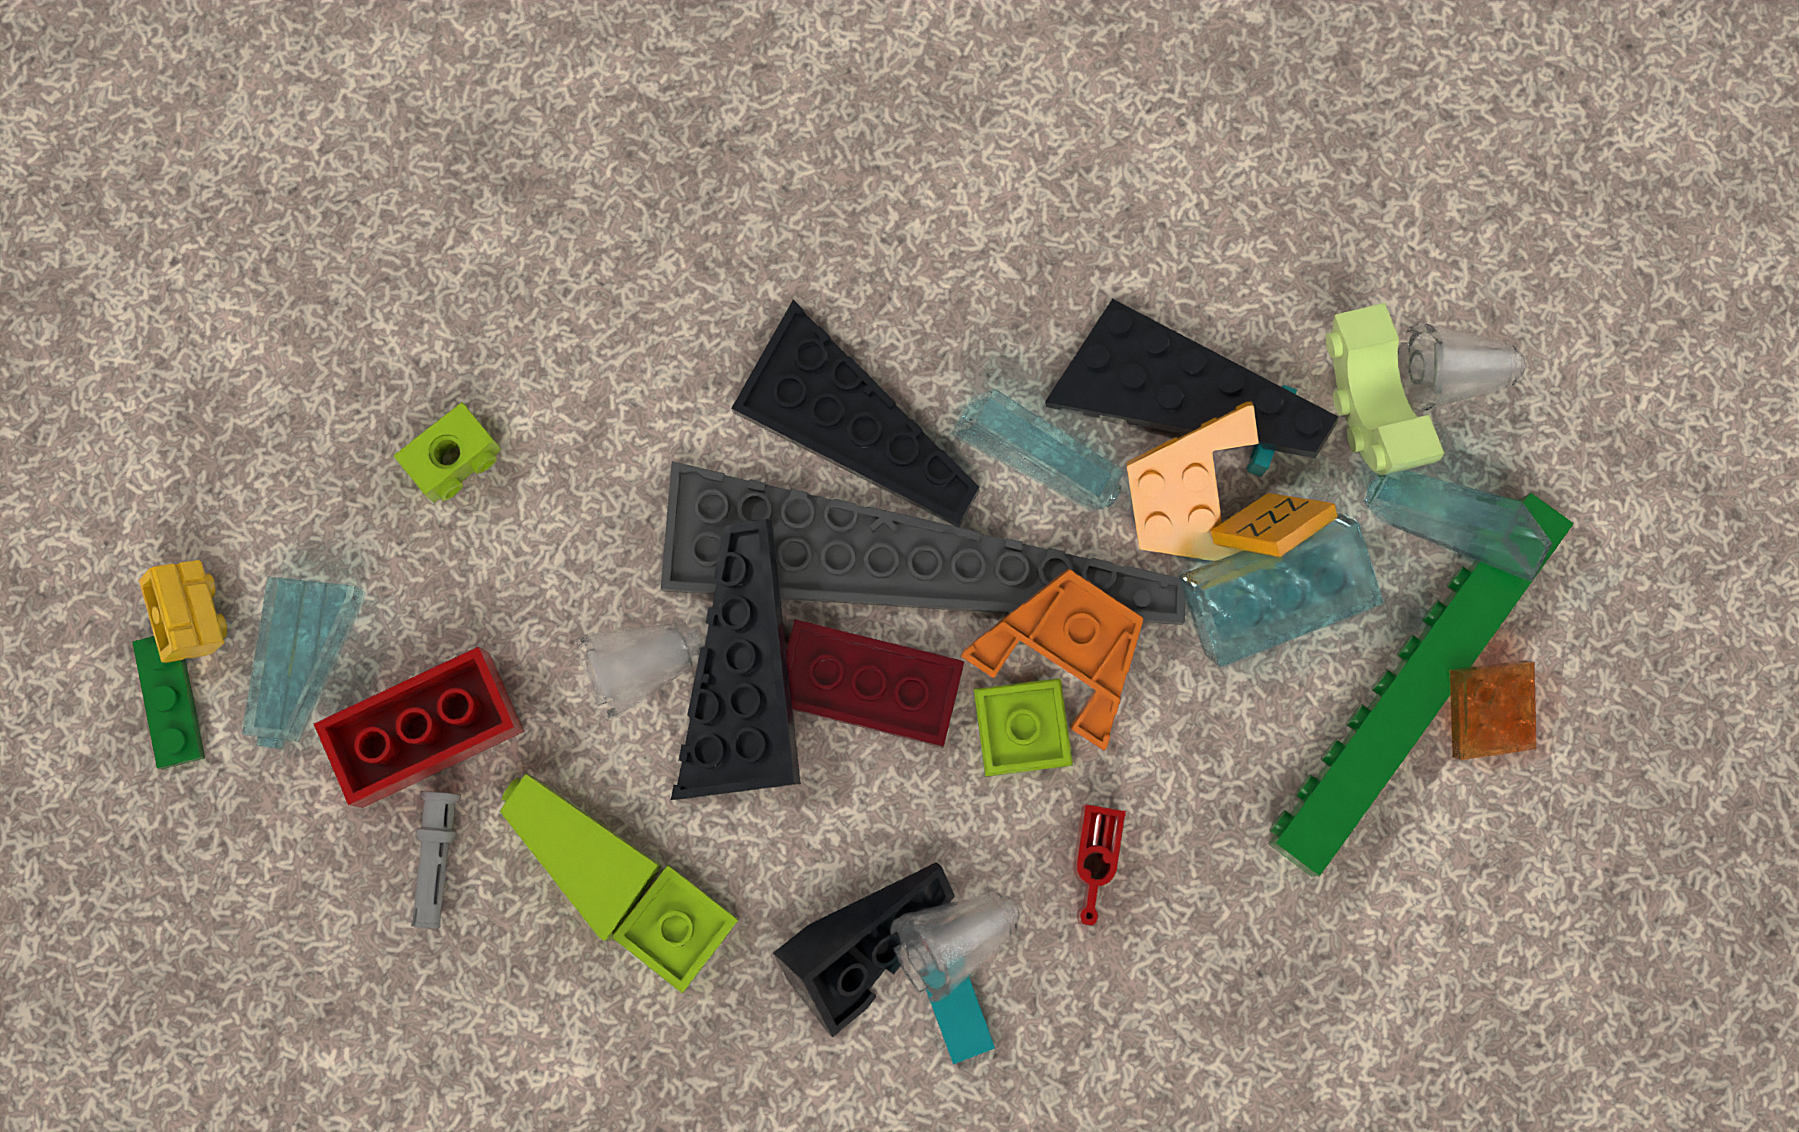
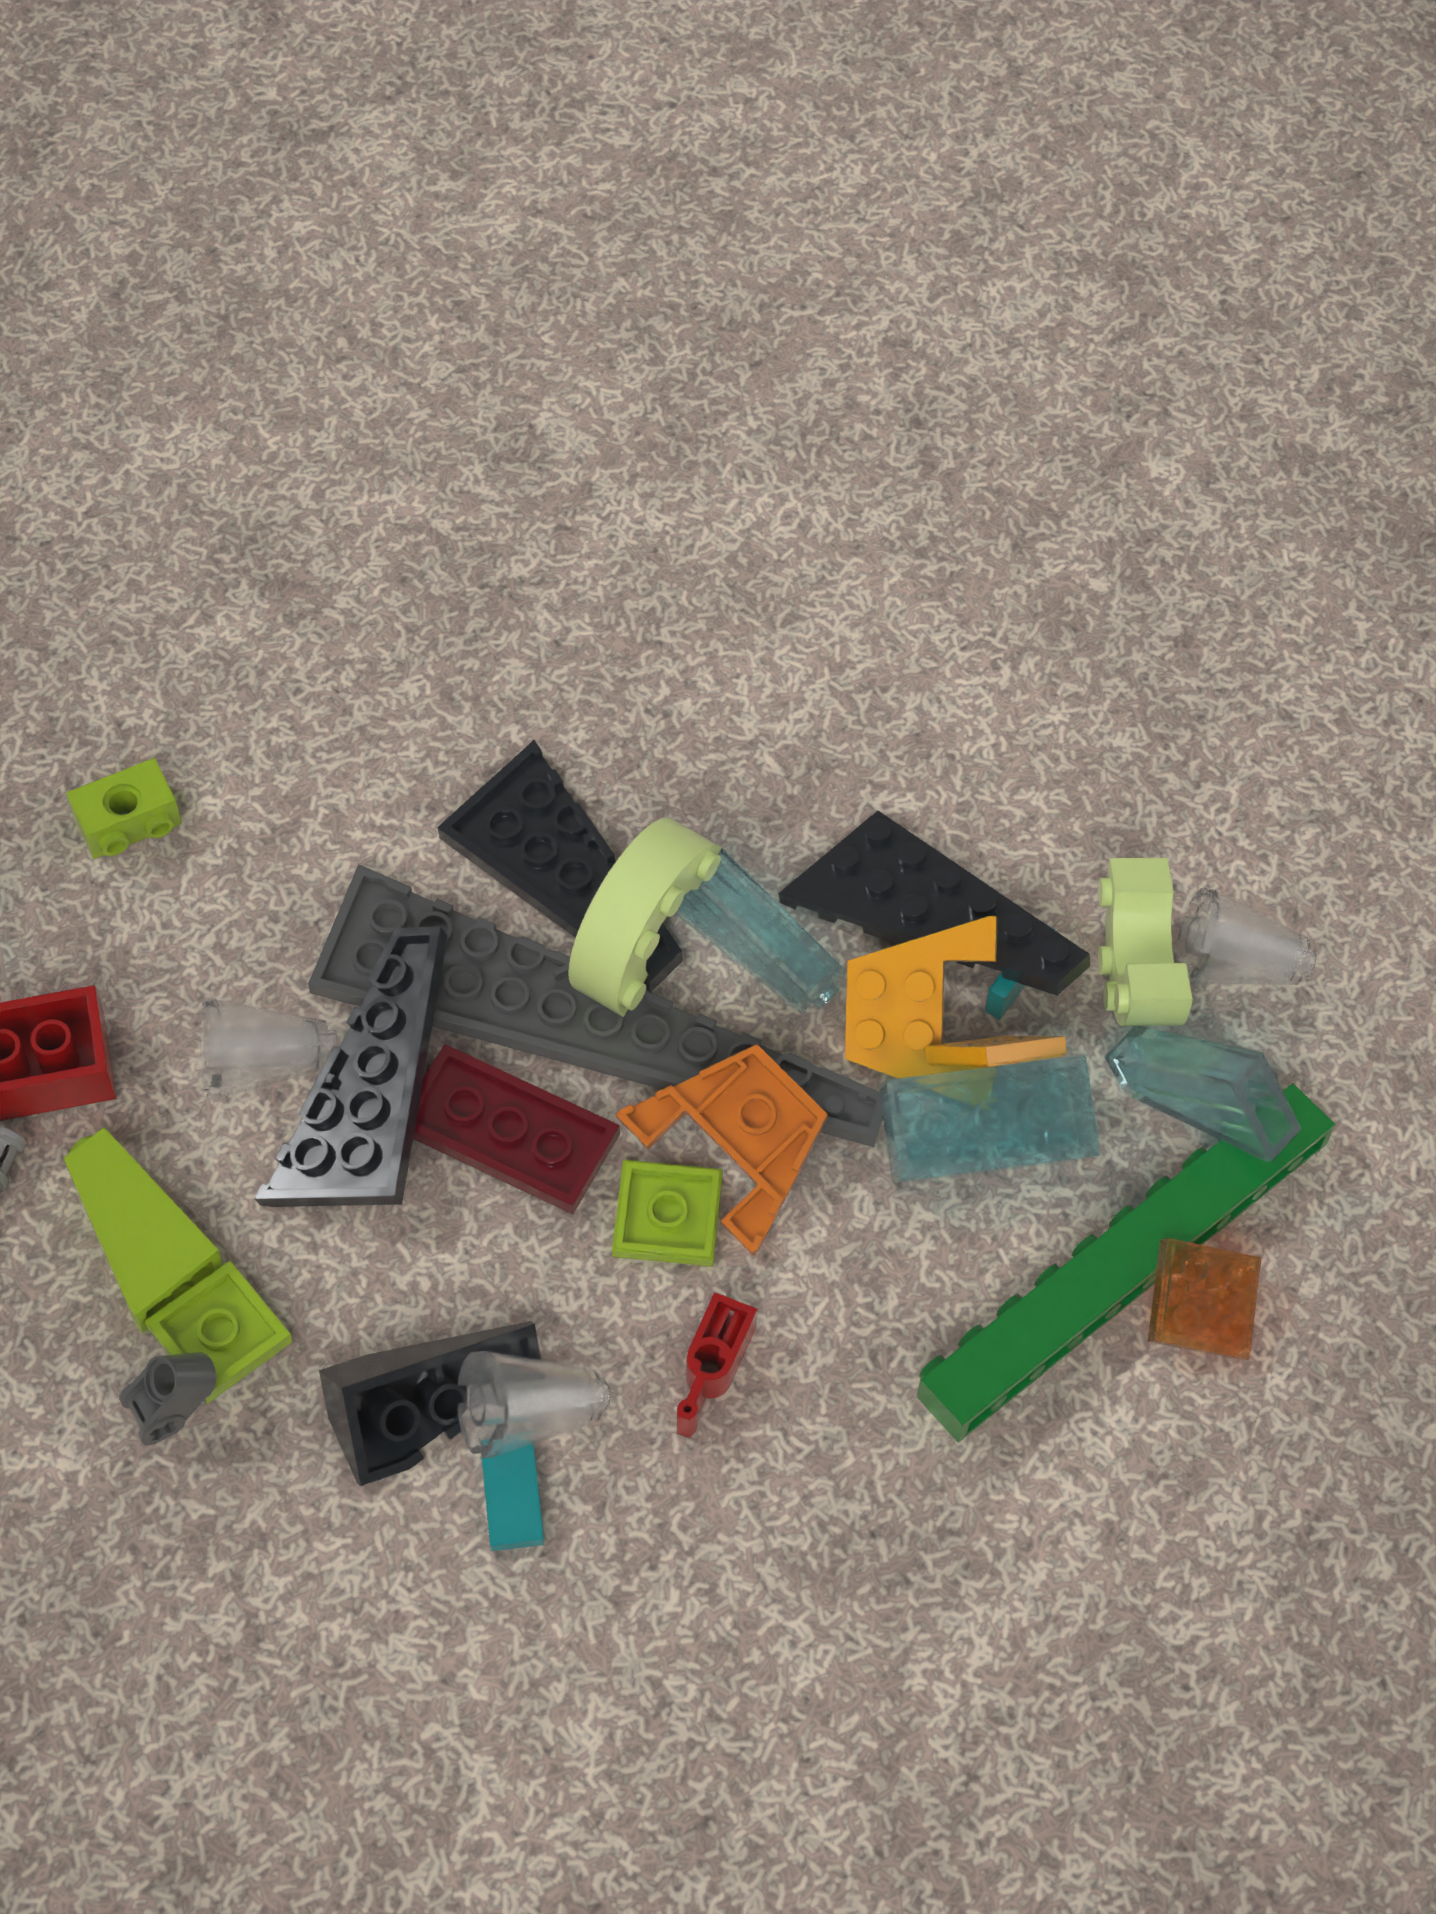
camera: 10 degrees right, 20 degrees down
(653, 999) = (168, 1393): none -> dark grey piece
(942, 468) = (631, 906): none -> yellowish green brick

